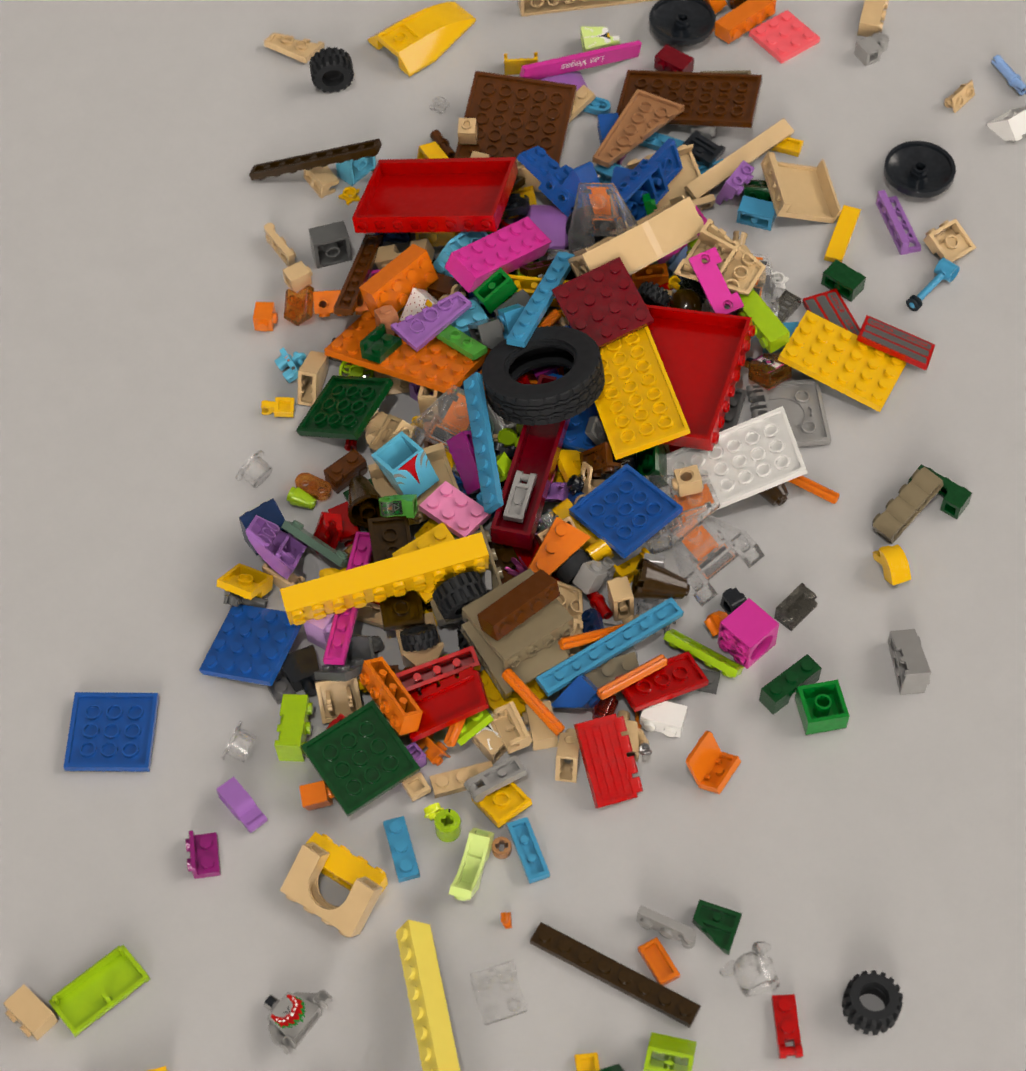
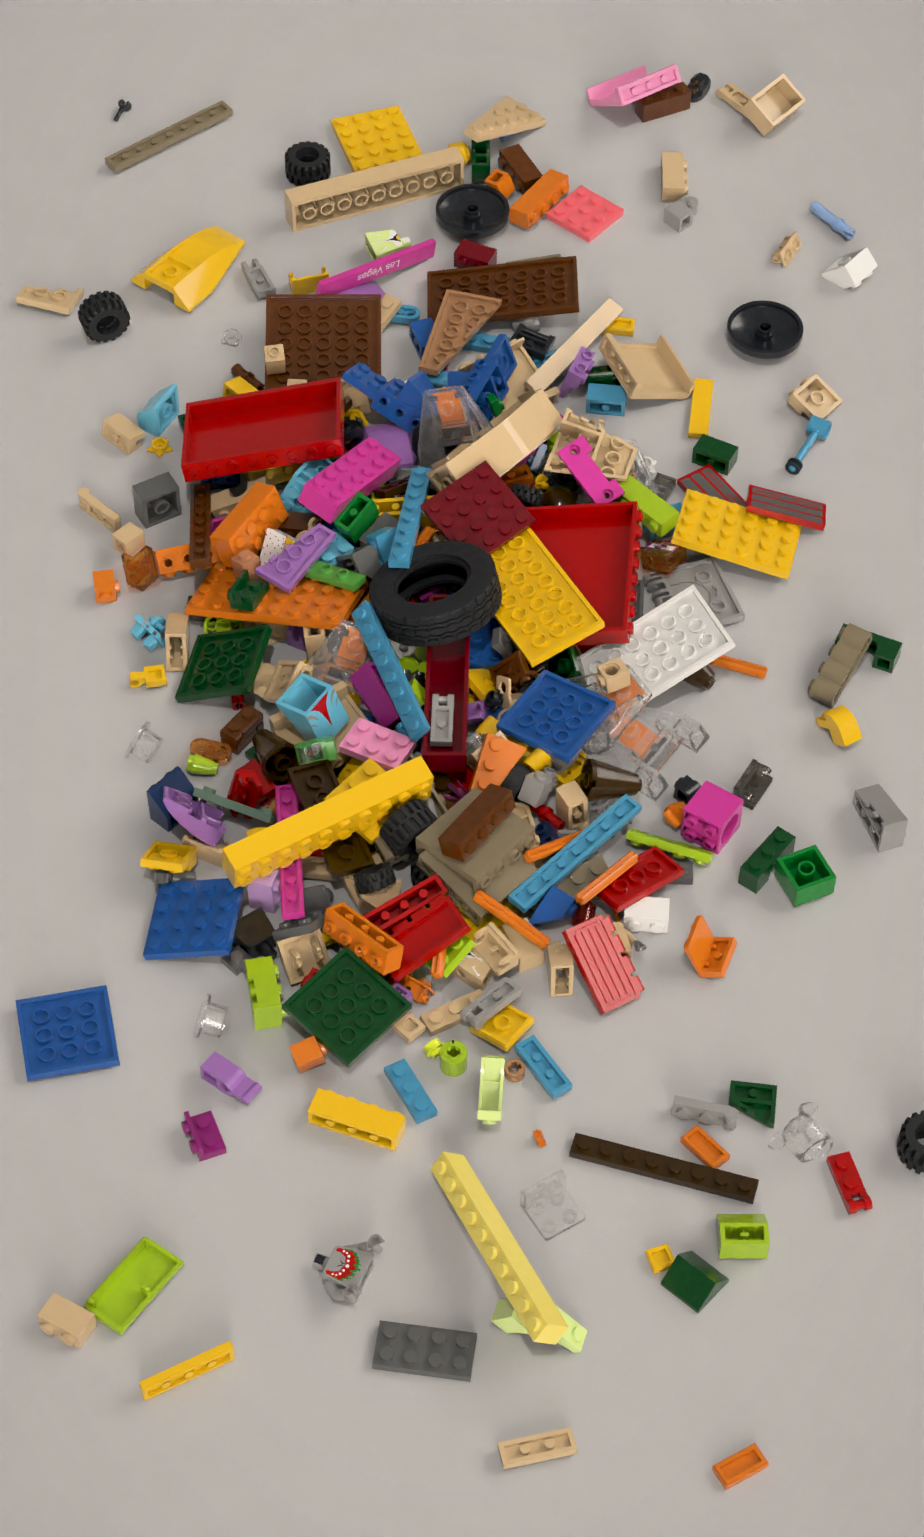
camera: 15 degrees left, 5 degrees down
(302, 887) = (320, 1144): tan arch -> none
(316, 159) = (115, 413): dark brown plate -> none
(477, 55) = (258, 279): none -> light grey hinge
(895, 226) = (754, 388): medium lavender fence -> none

